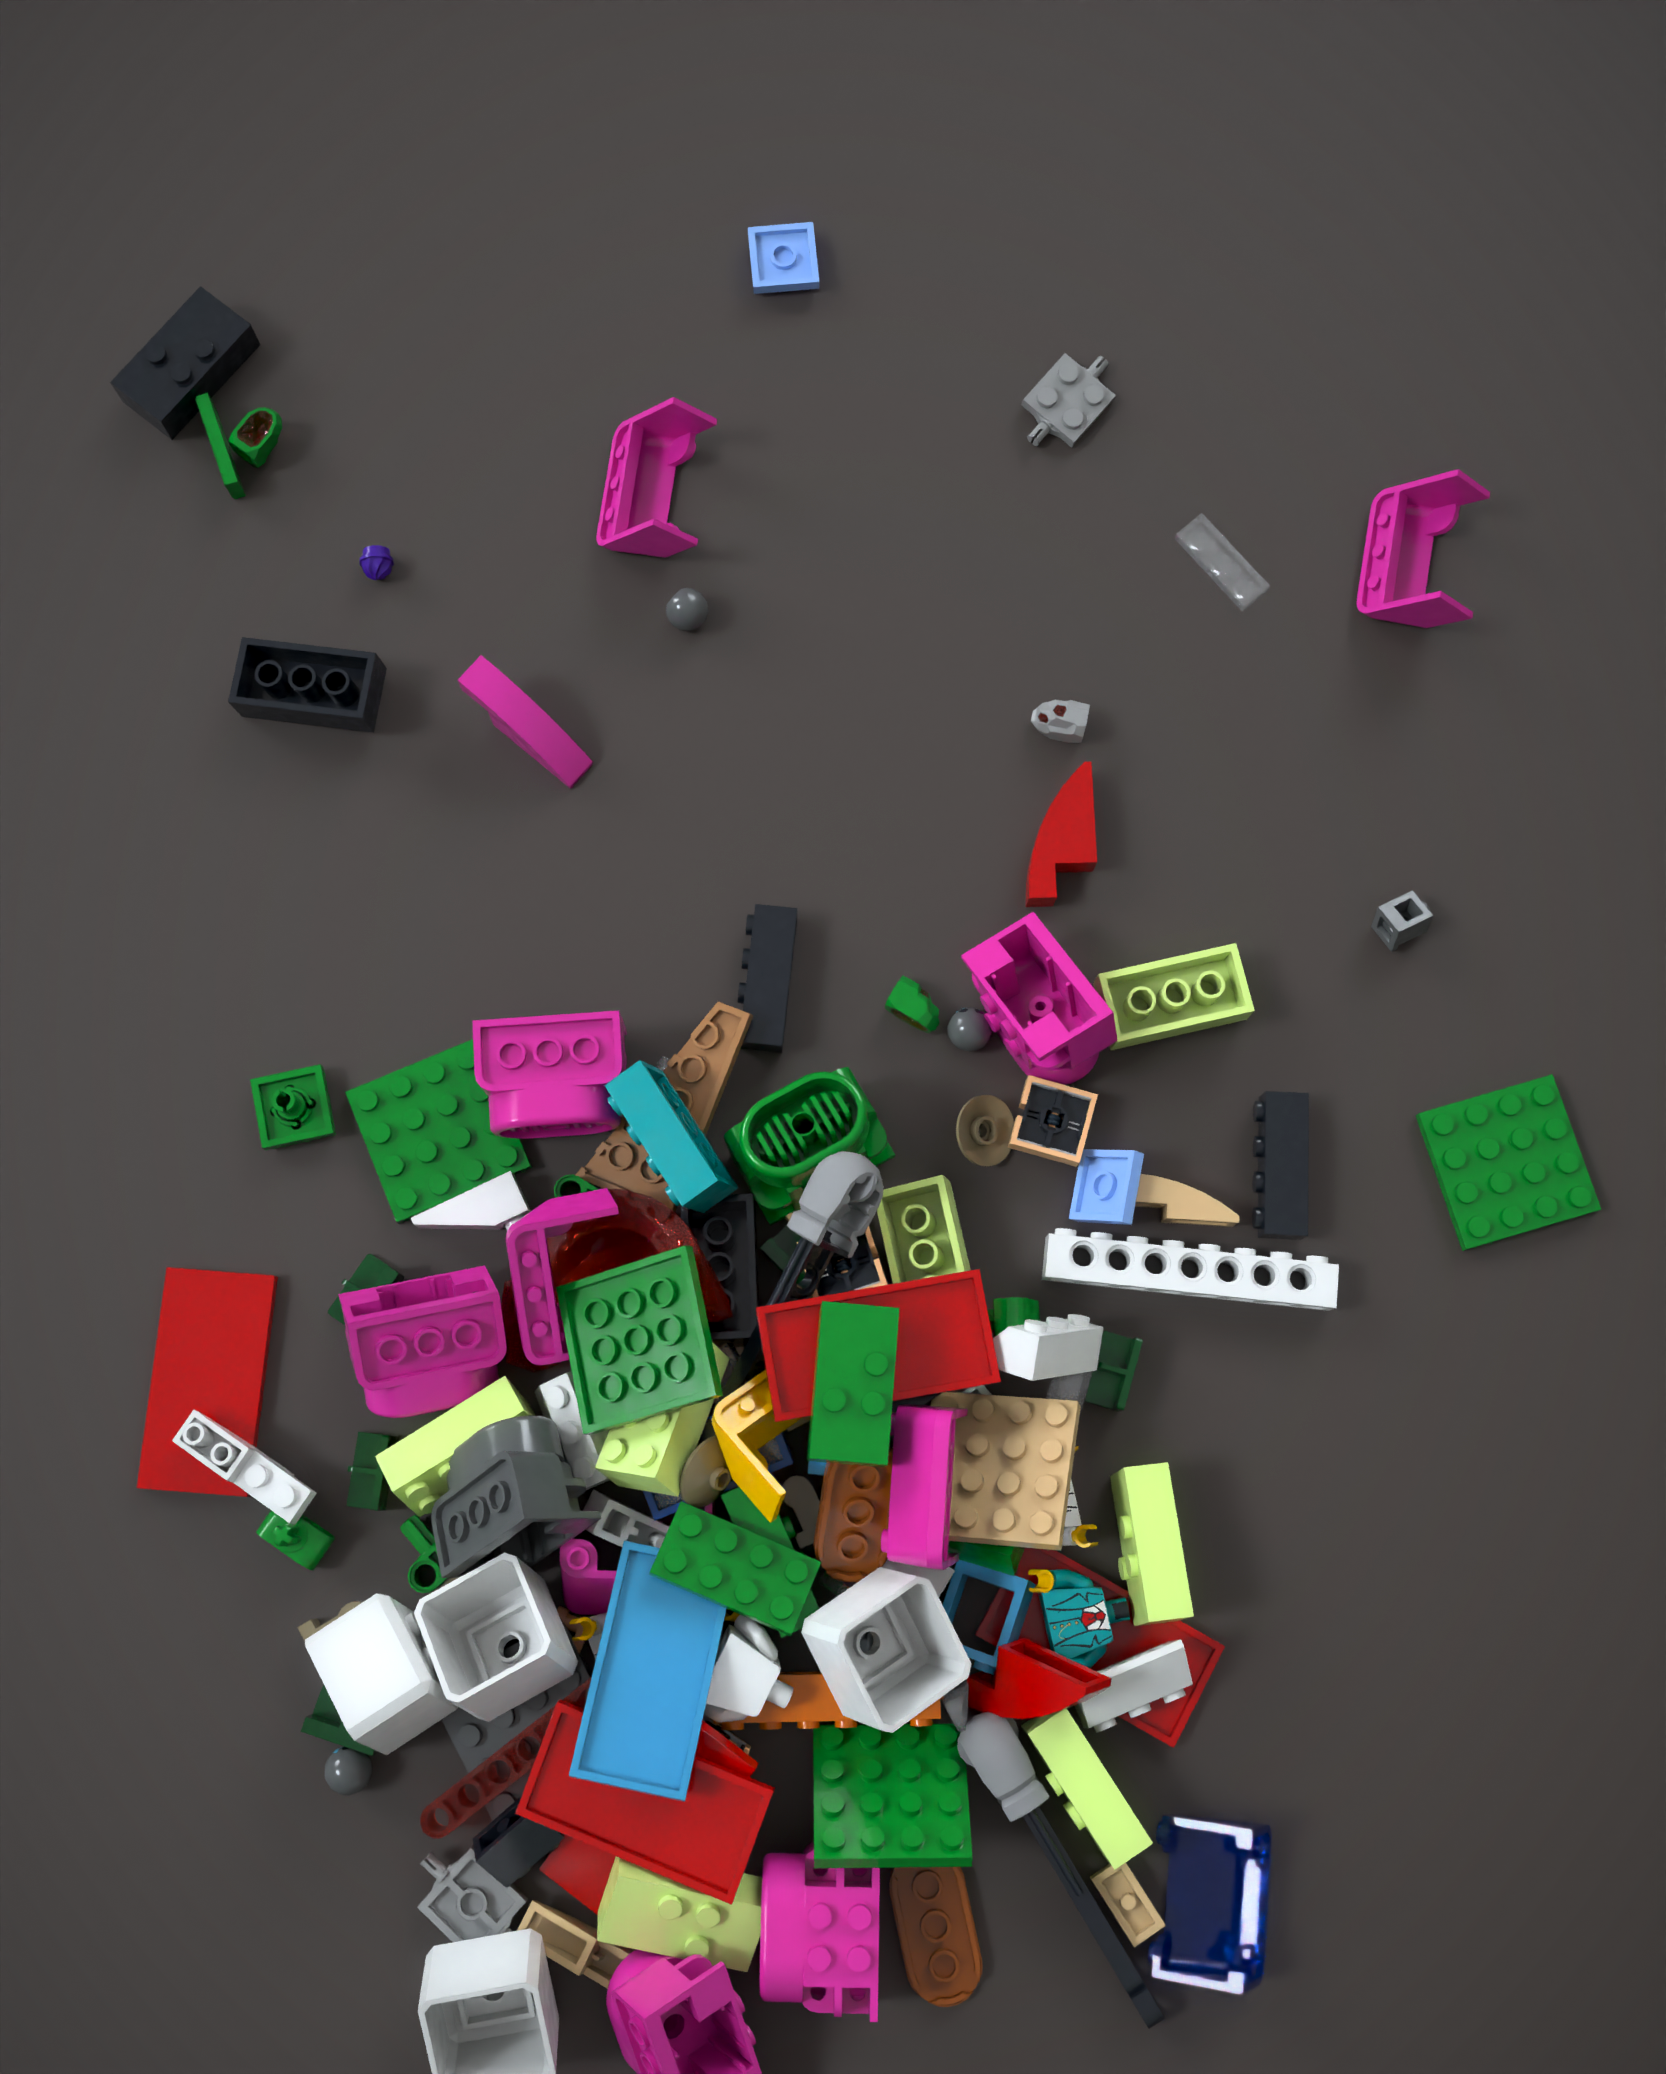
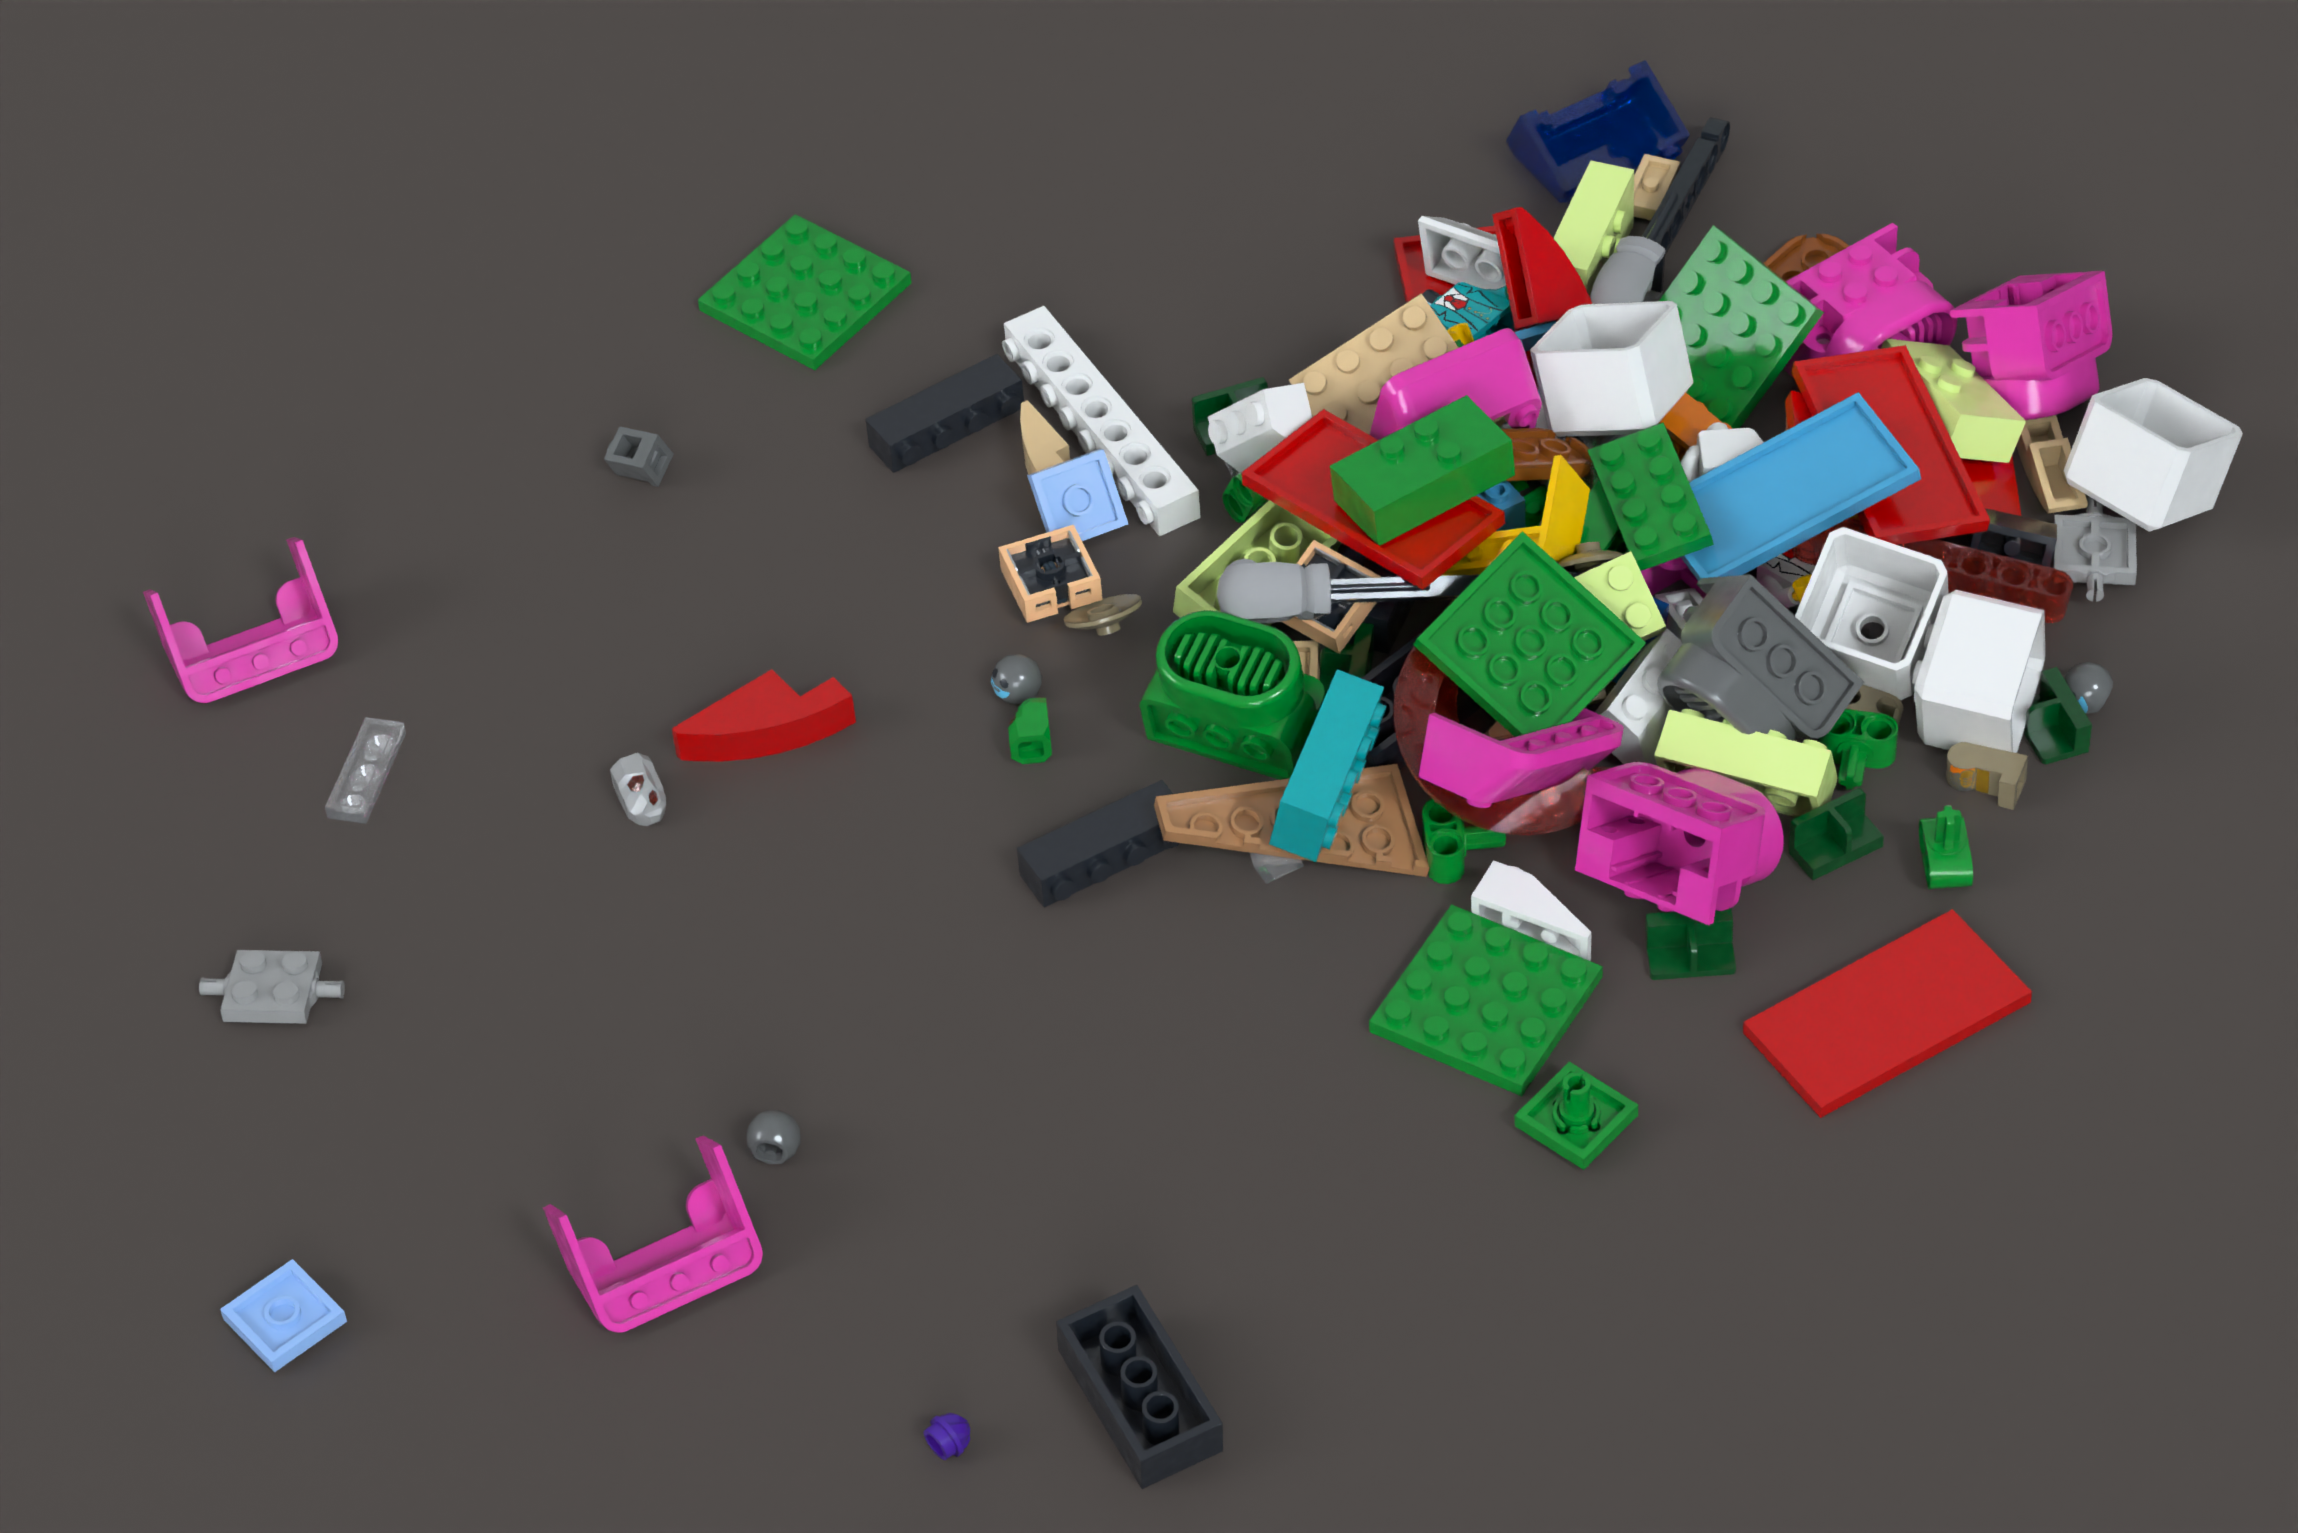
camera: 120 degrees left, 30 degrees down
(244, 1466) = (1925, 905): white slope -> none
(524, 721) = (1016, 1179): dark pink slope -> none
(550, 1072) = (1349, 908): dark pink brick -> none
(1040, 1002) = (951, 610): dark pink brick -> none
(1151, 1544) = (1358, 293): yellowish green brick -> none
(1176, 995) = (856, 555): yellowish green brick -> none

